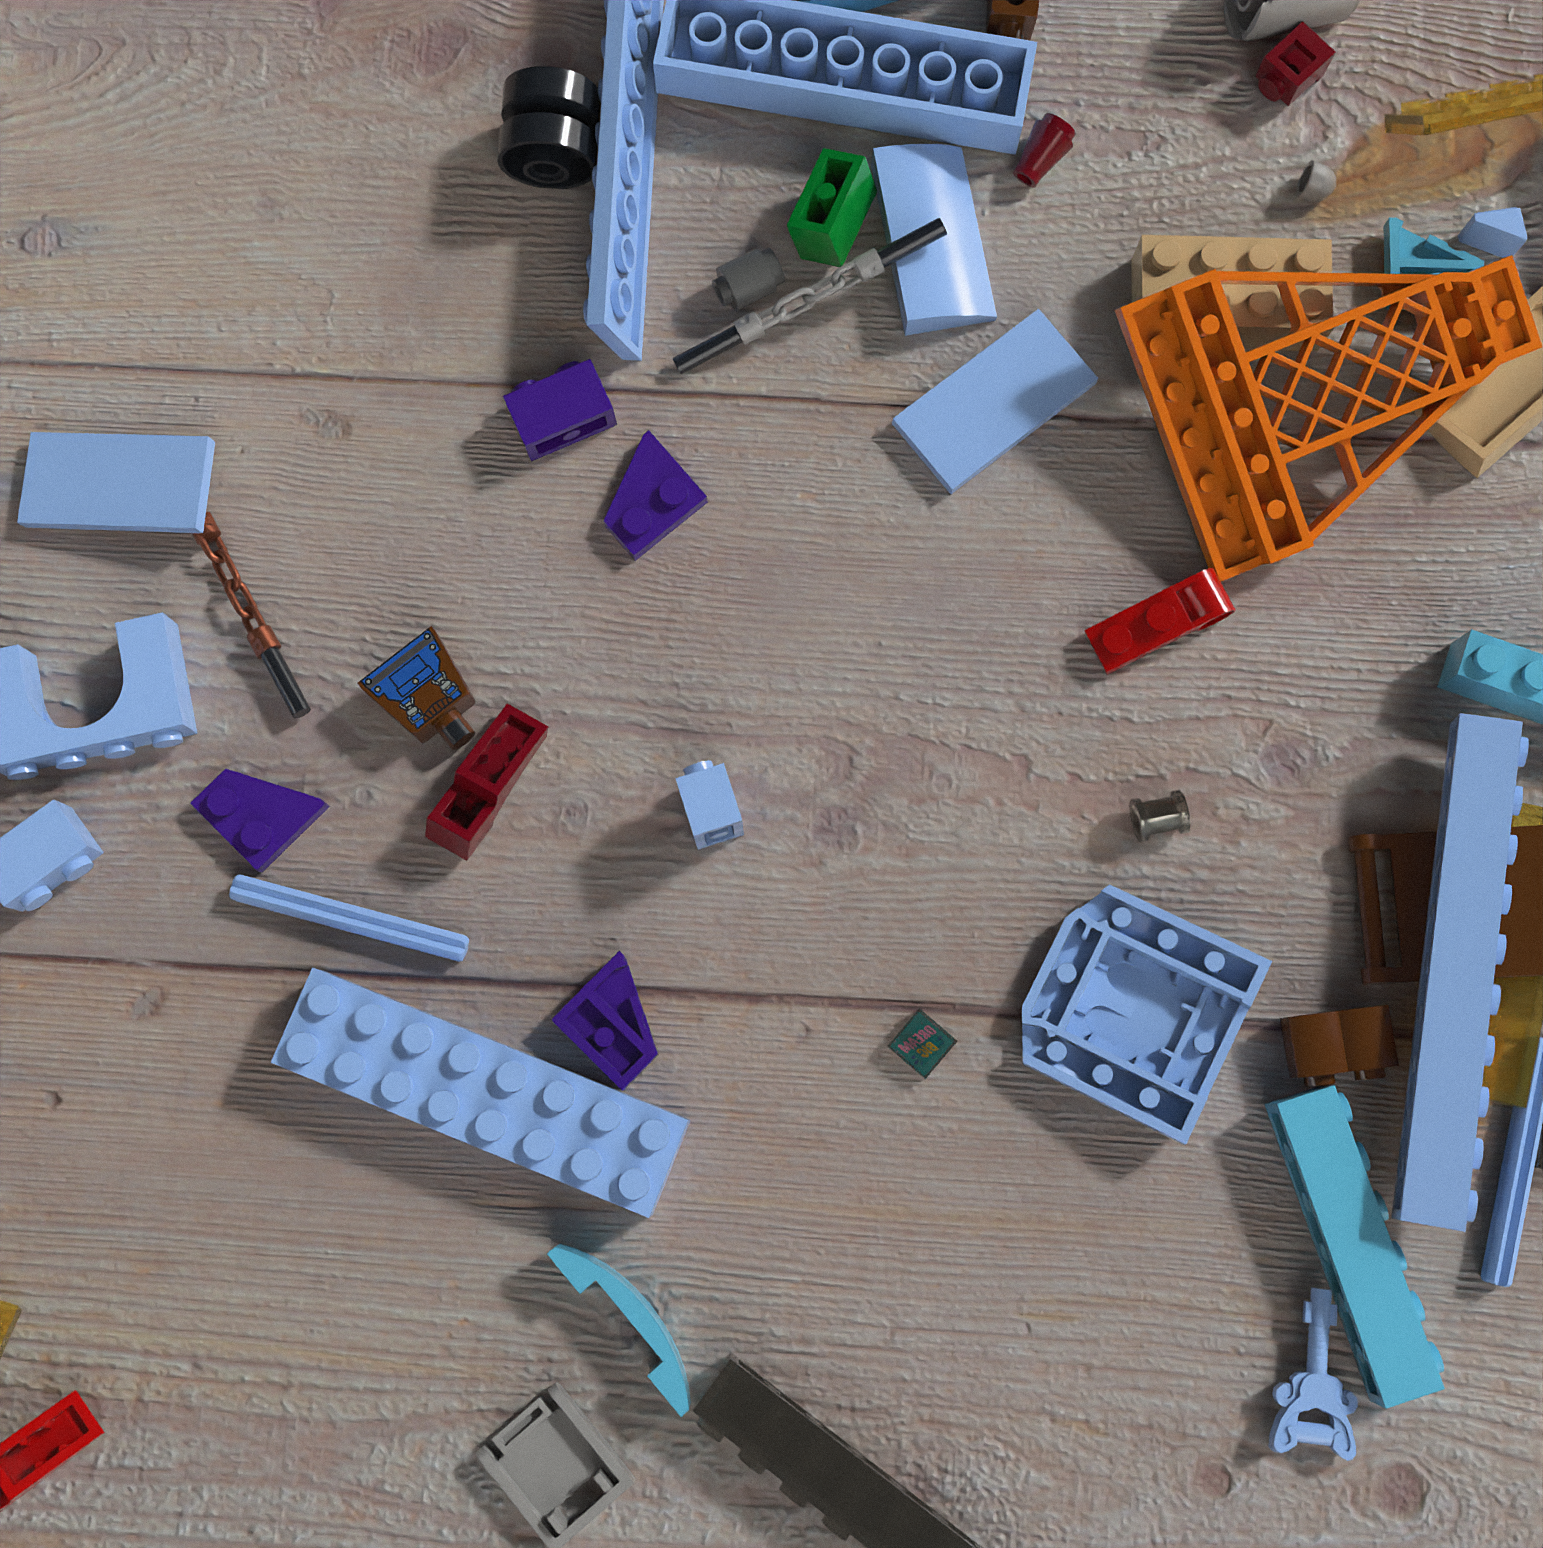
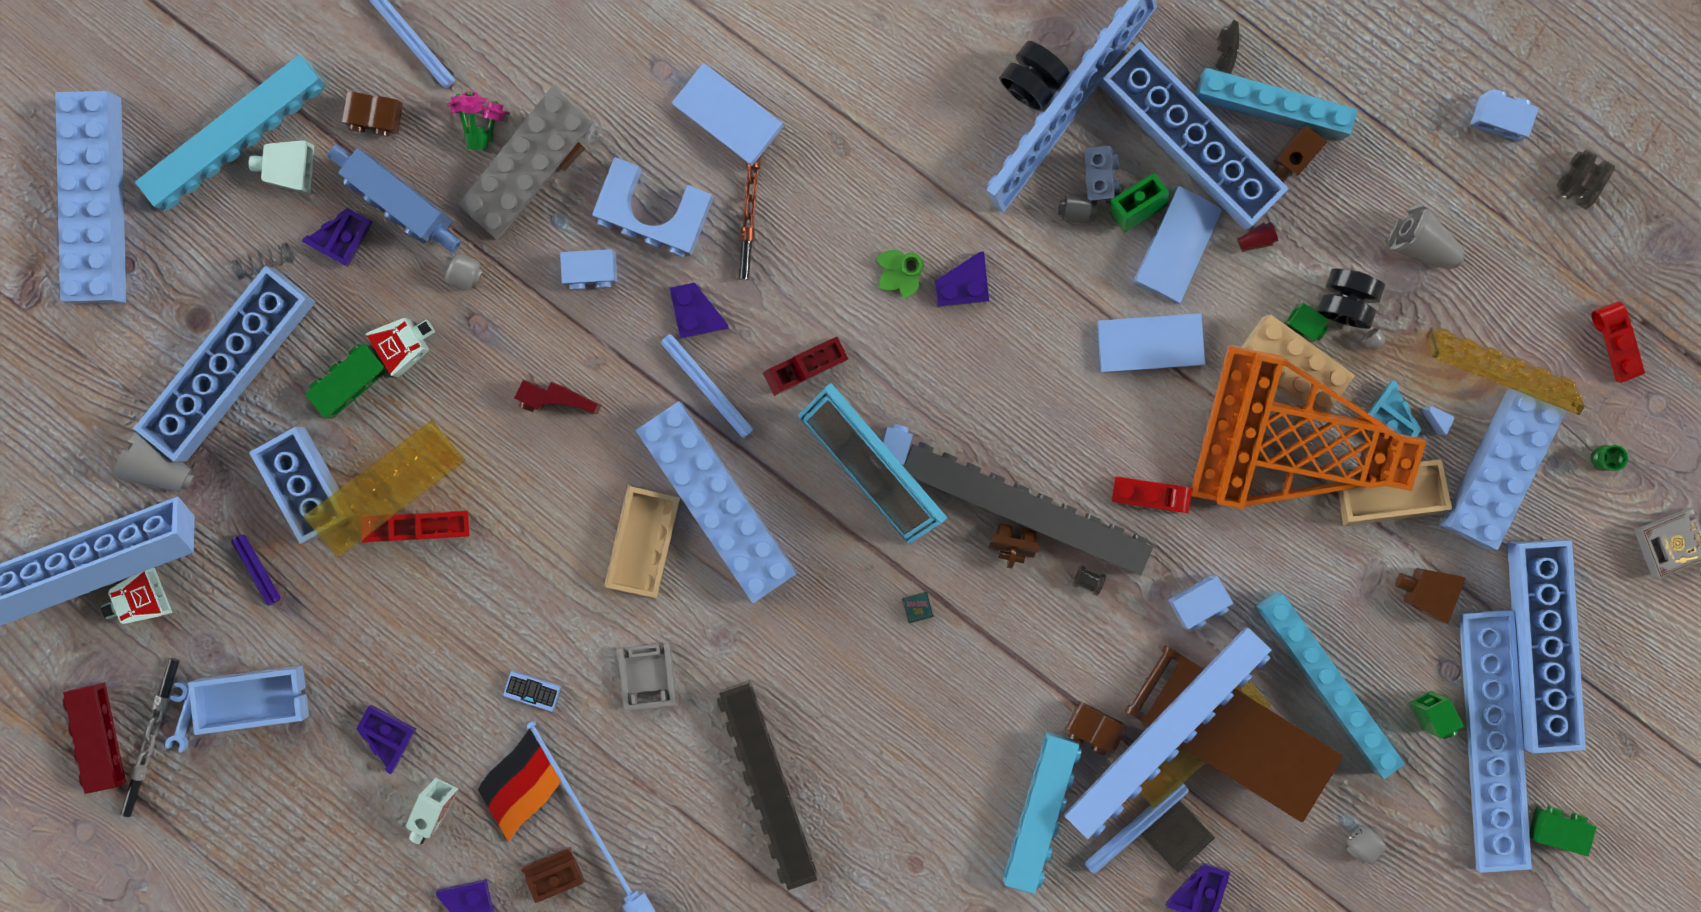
camera: 30 degrees right, 10 degrees up
(105, 1096) = (535, 397): none -> dark red slope
(402, 1242) = (642, 541): none -> tan slope
(423, 691) = (804, 307): torso -> none
(540, 551) = (897, 275): none -> bright green plate
(560, 409) = (950, 214): dark purple brick -> none
(610, 1023) = (790, 509): dark purple wing -> none
(669, 1372) = (712, 606): medium azure slope -> none
(690, 856) = (871, 465): none -> door
(745, 204) = (1100, 173): none -> sand blue bracket
(866, 265) = (1135, 242): piece -> none
(985, 770) = (1030, 511): none -> dark grey brick
(1006, 845) = (1014, 549): none -> reddish brown hips
(1138, 1009) = (1020, 656): light blue wedge -> none
(1204, 213) = (1307, 322): none -> green brick
(1242, 138) = (1353, 292): none -> black wheel
(1294, 65) = (1412, 273): dark red brick -> none
(1315, 1390) = (982, 858): light blue piece -> none
(1355, 733) = (1201, 602): none -> light blue brick

